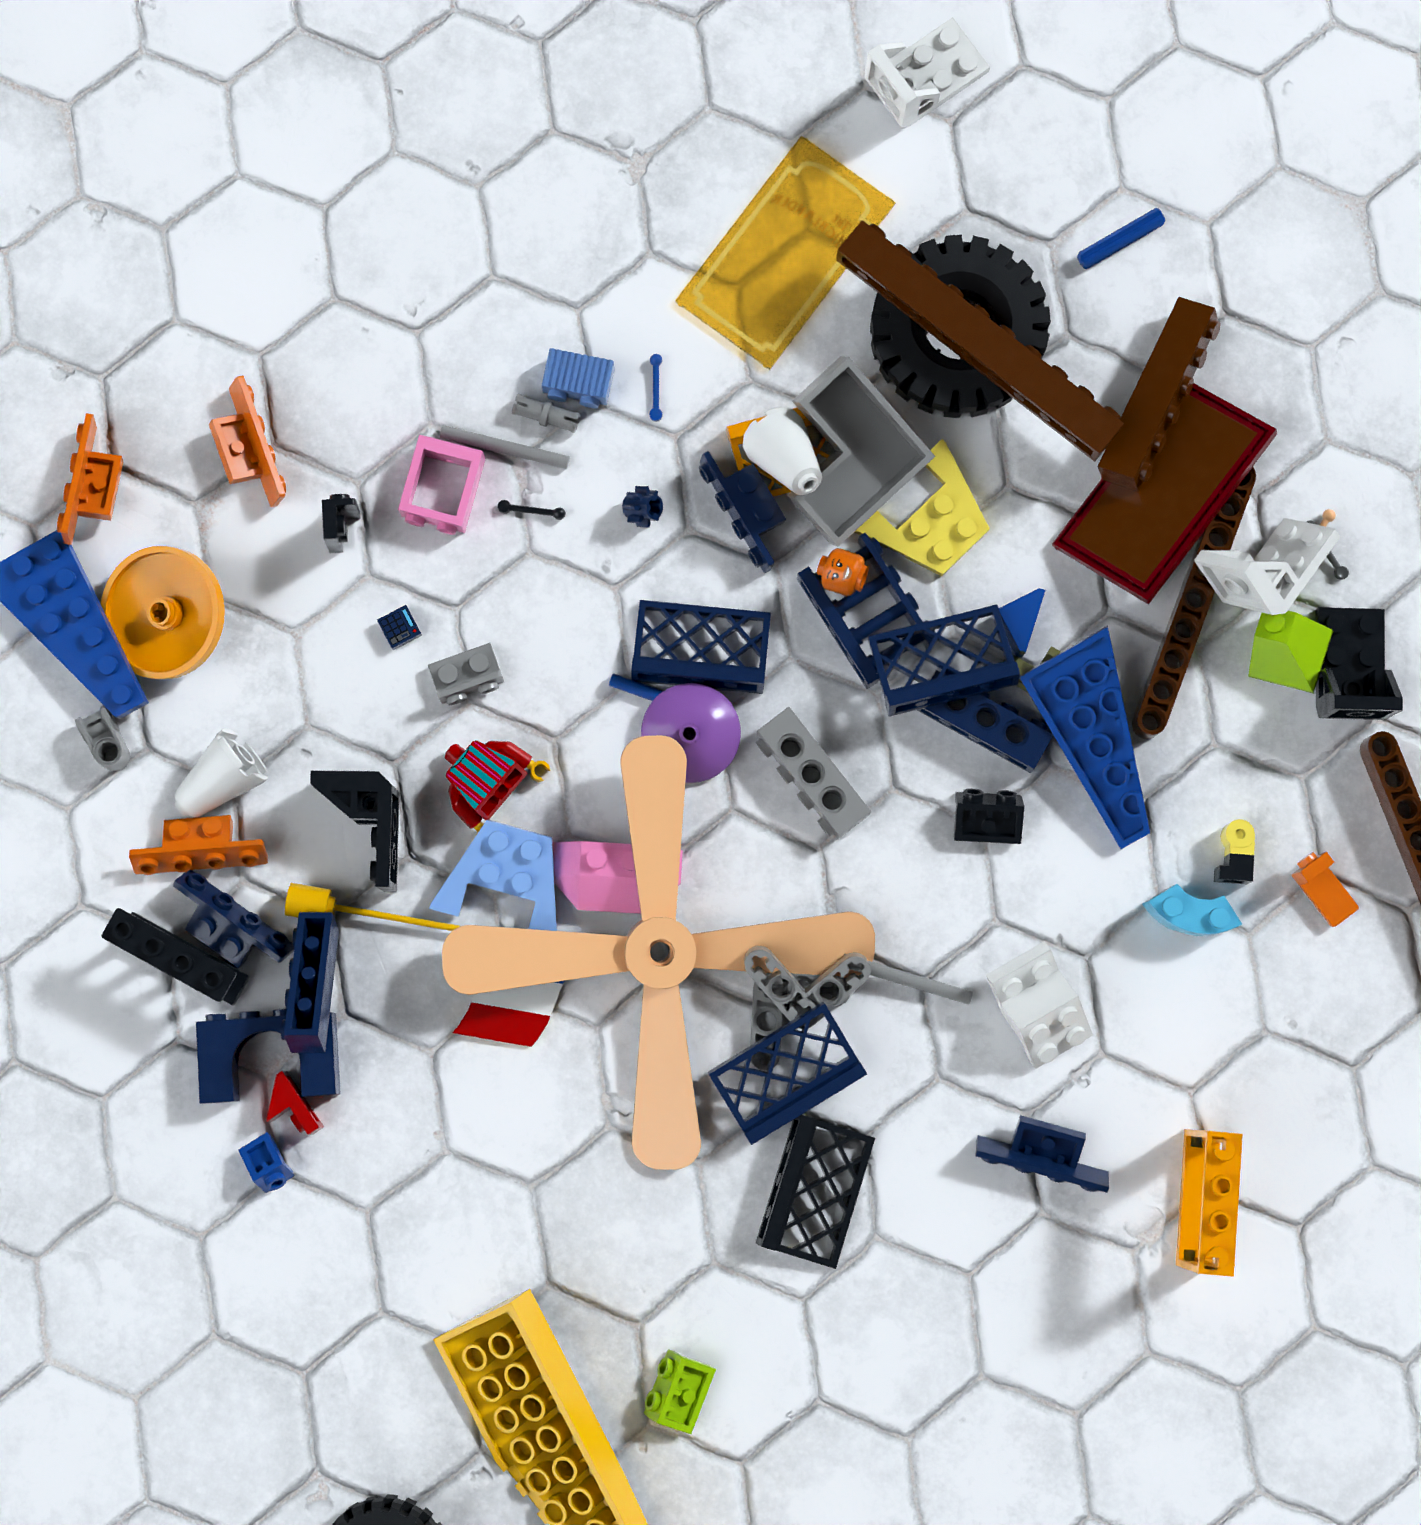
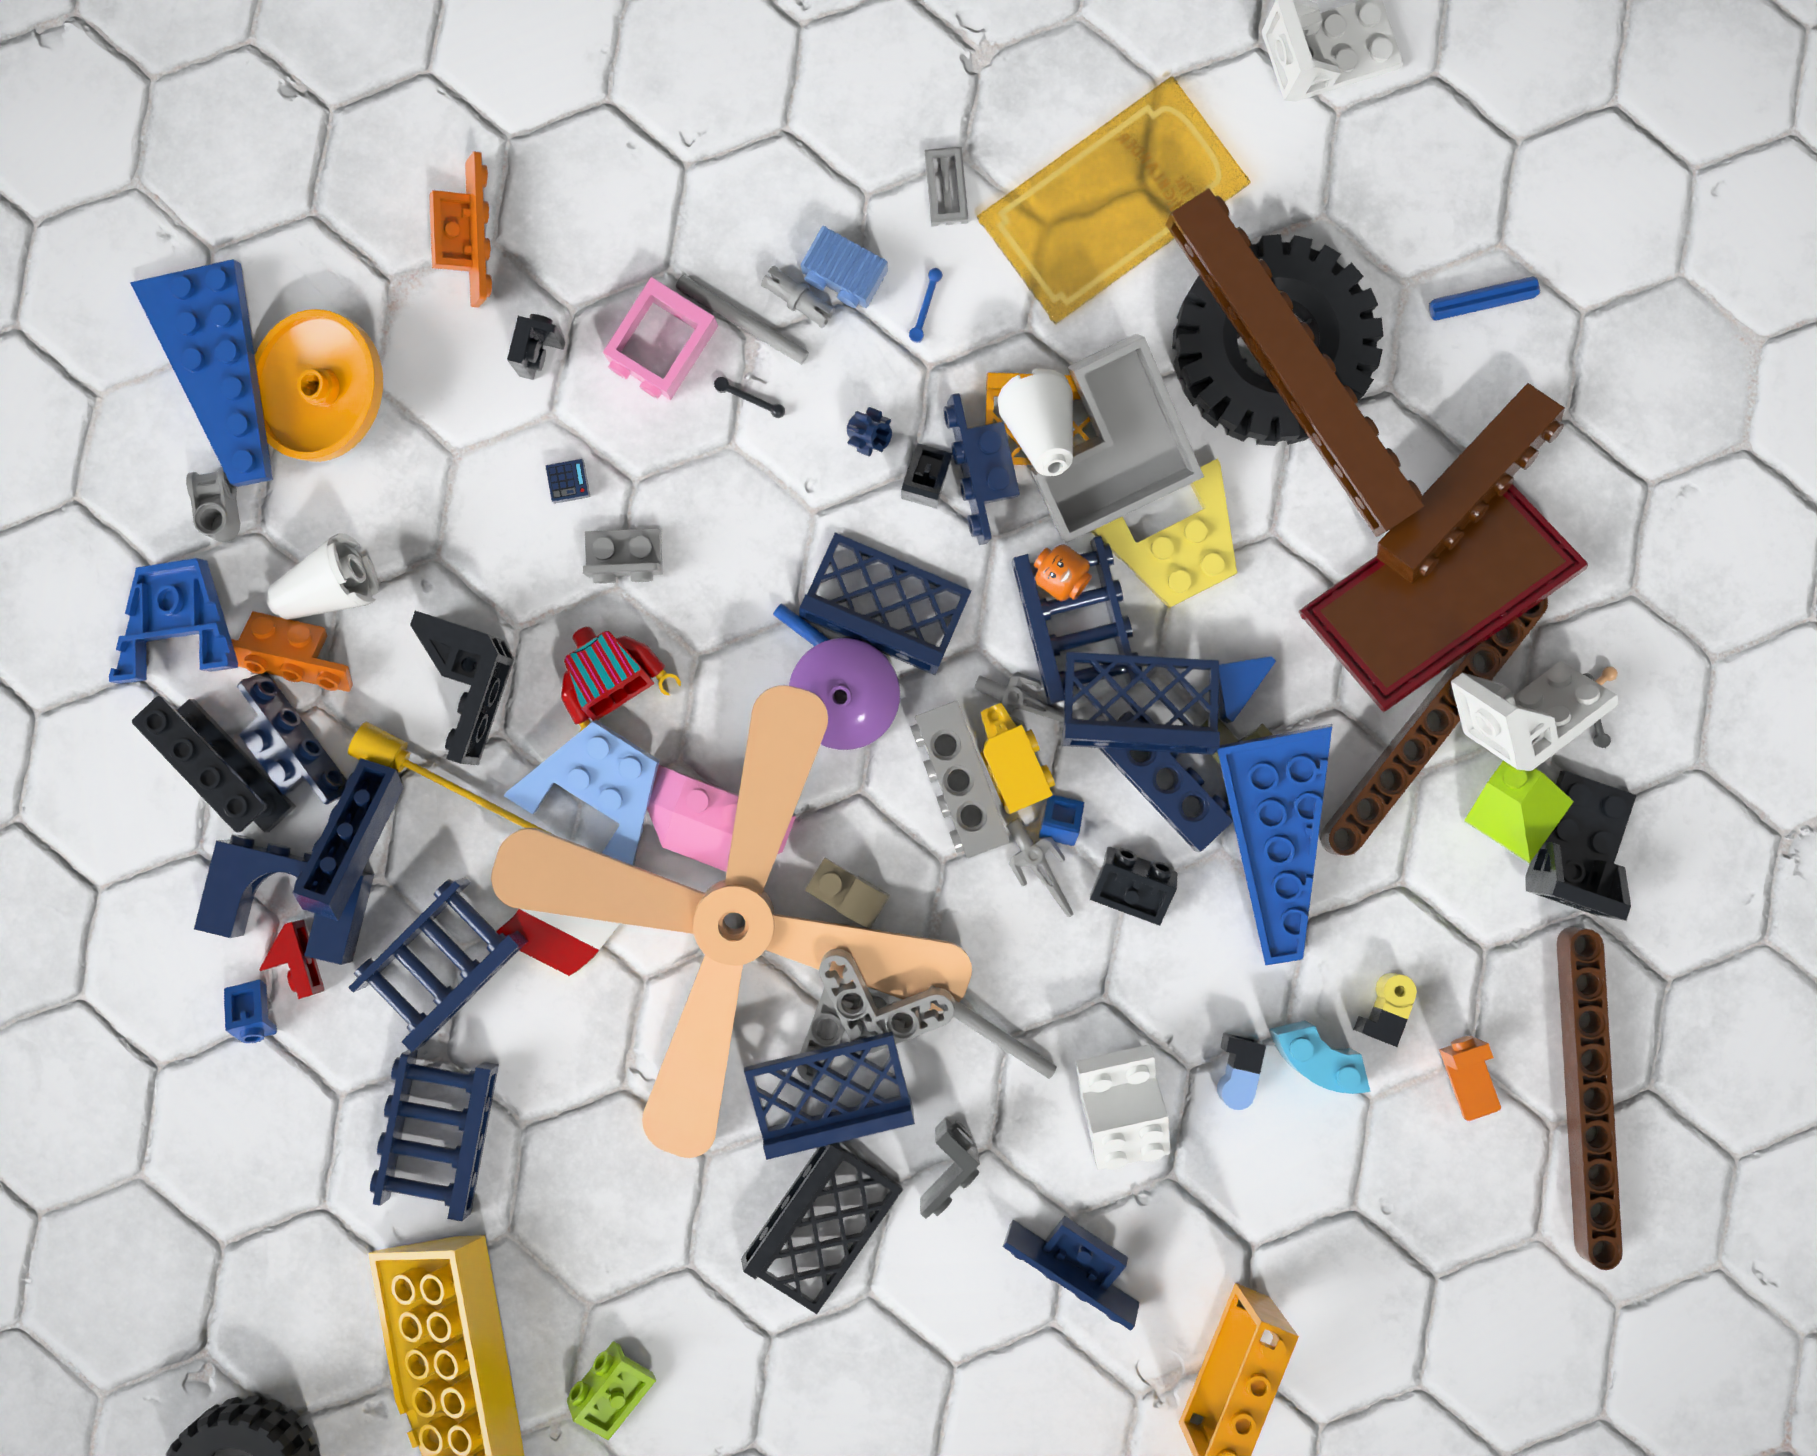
camera: 15 degrees right, 5 degrees up
(92, 484) = (282, 220): orange bracket -> none
(94, 834) = (173, 603): none -> blue wing
(434, 1097) = (448, 1000): none -> dark blue fence
(490, 1229) = (464, 1158): none -> dark blue fence
(651, 308) = (949, 217): none -> light grey tile
(702, 529) = (926, 475): none -> black slope
(748, 897) = (847, 893): none -> dark tan brick
(834, 691) = (1013, 696): none -> light grey piece
(852, 743) = (1013, 762): none -> yellow hinge
(895, 818) = (1034, 854): none -> light grey piece
(909, 782) = (1062, 819): none -> blue slope
(910, 1079) = (956, 1143): none -> dark grey bracket
(1131, 944) = (1243, 1071): none -> leg

